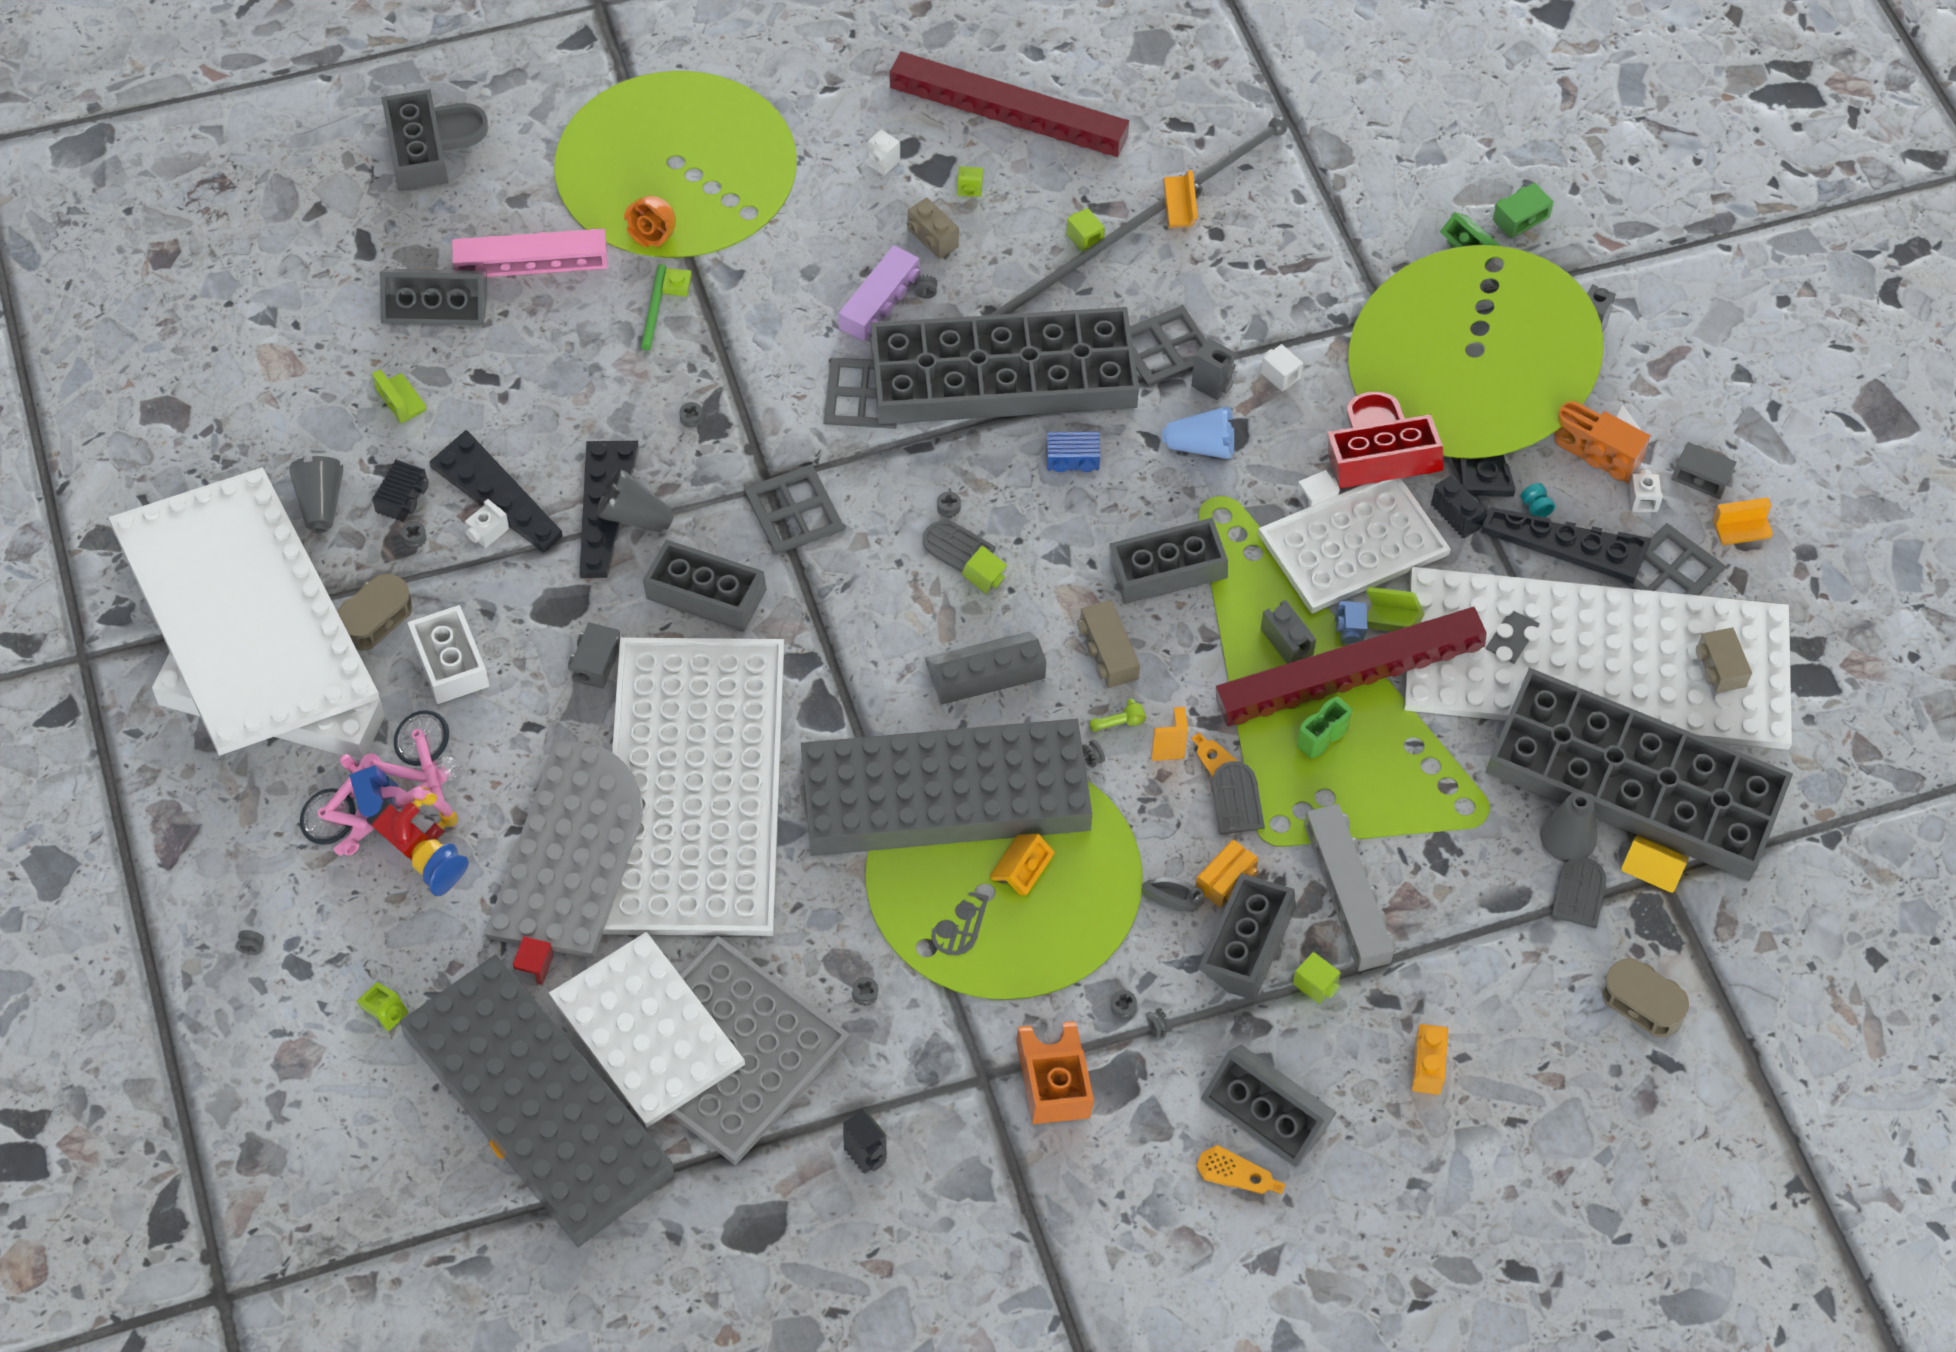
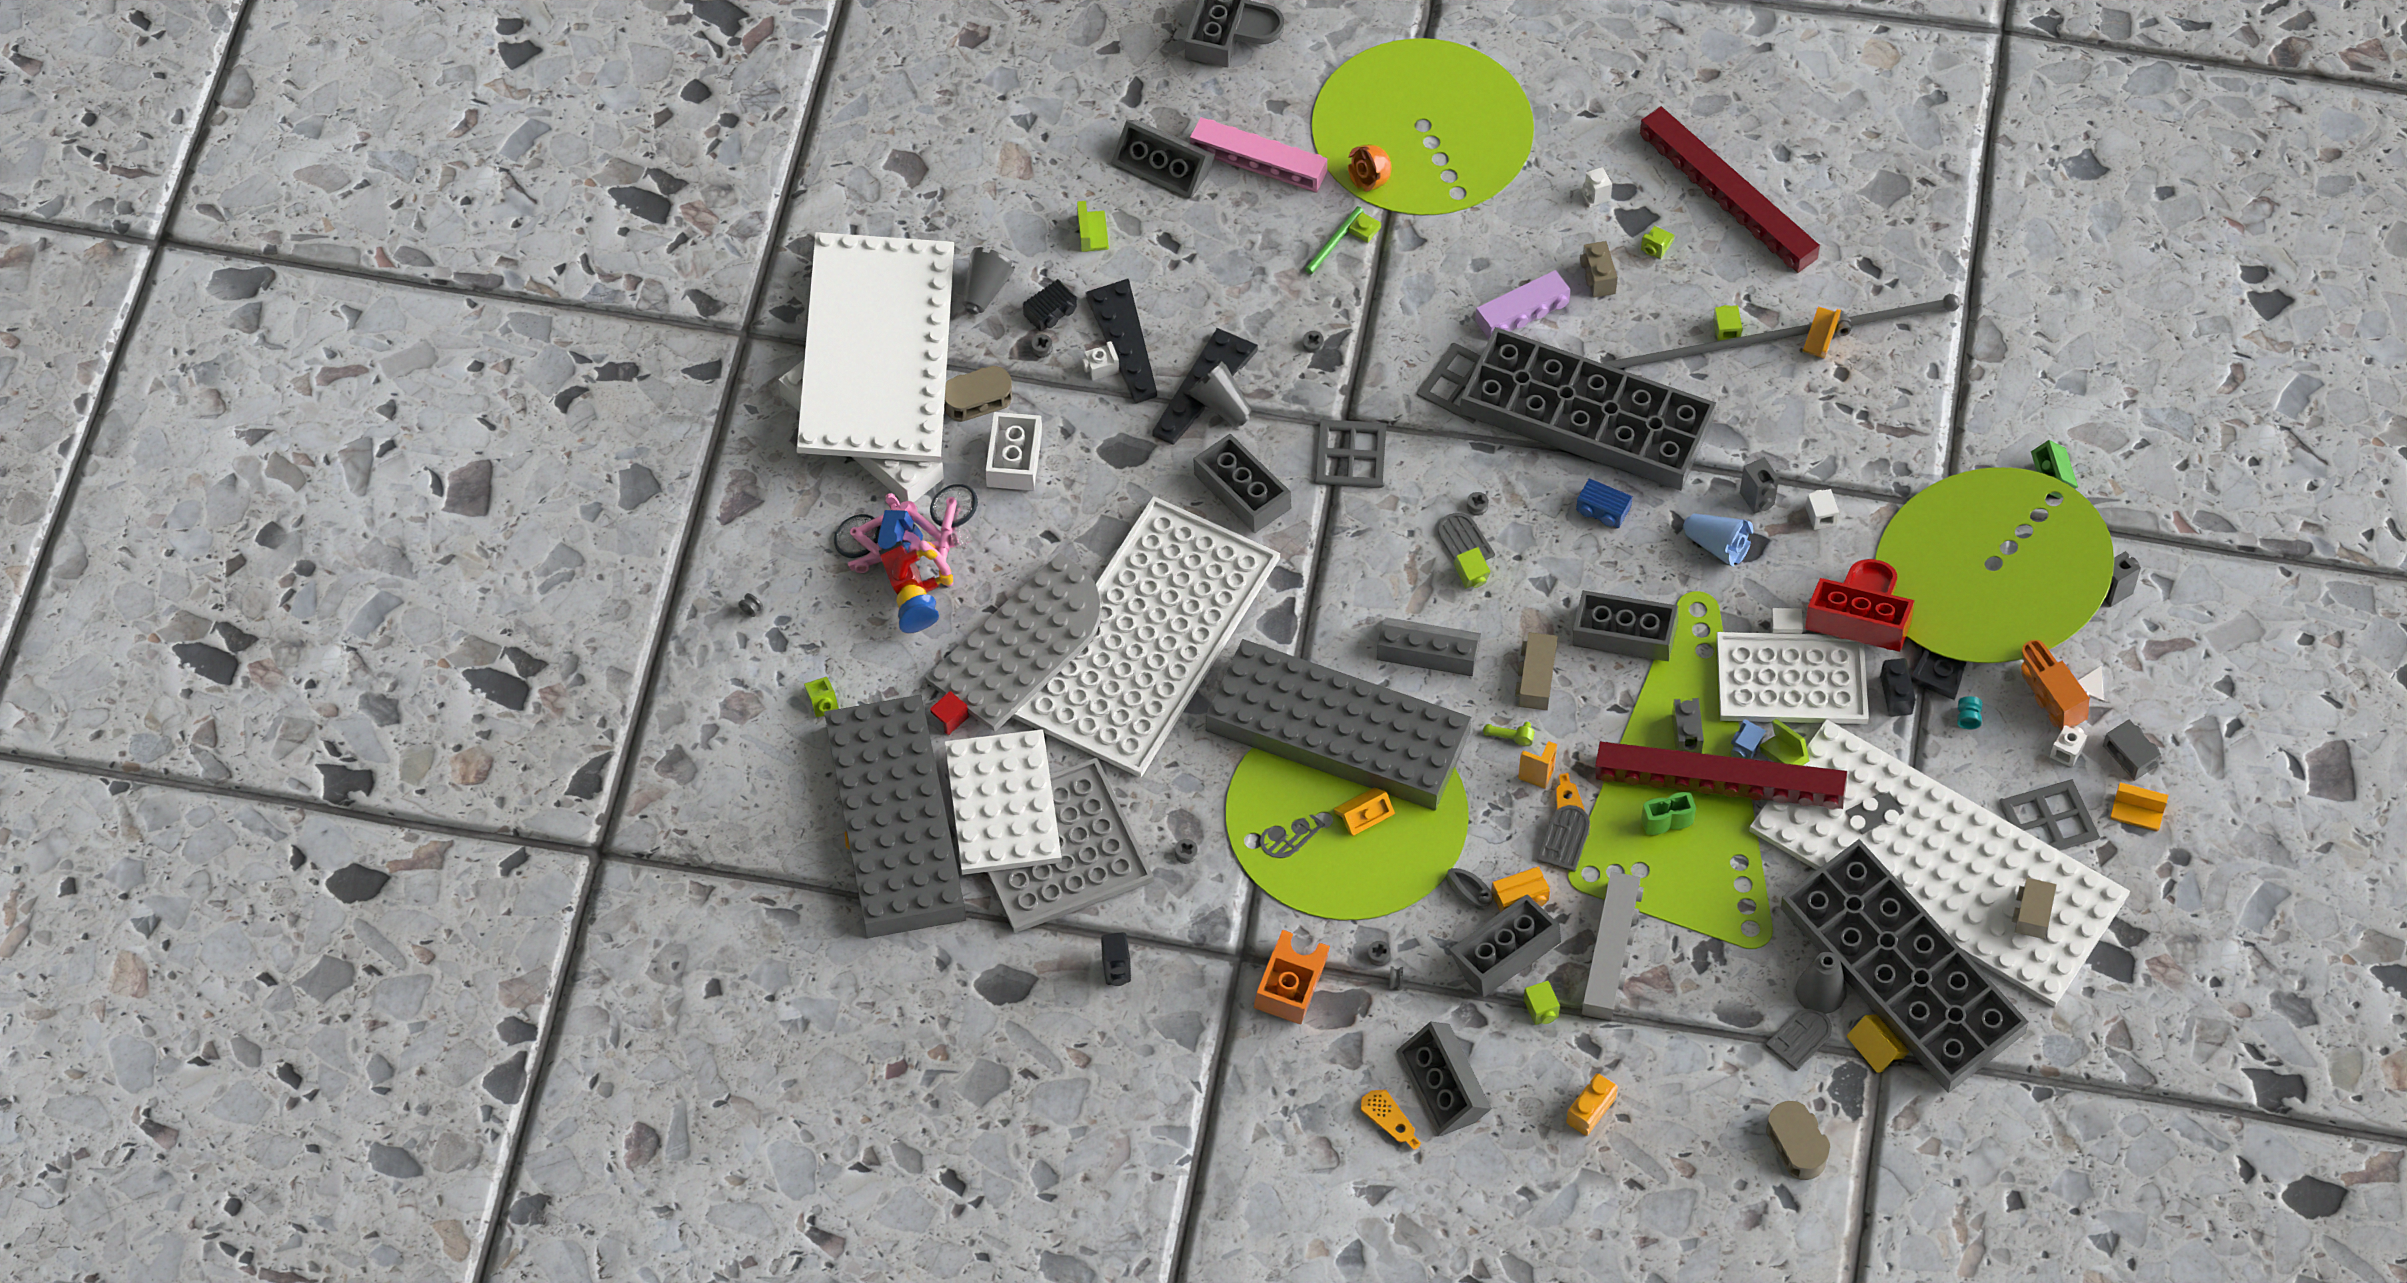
camera: 30 degrees right, 0 degrees up
(595, 655) = (1126, 501): dark grey brick -> none
(923, 282) = (1565, 316): dark grey bush -> none
(1093, 753) = (1472, 751): dark grey bush -> none
(1166, 345) = (1738, 449): dark grey window -> none
(1522, 210) = (2118, 463): bright green brick -> none
(1589, 548) = (1990, 772): black wing -> none

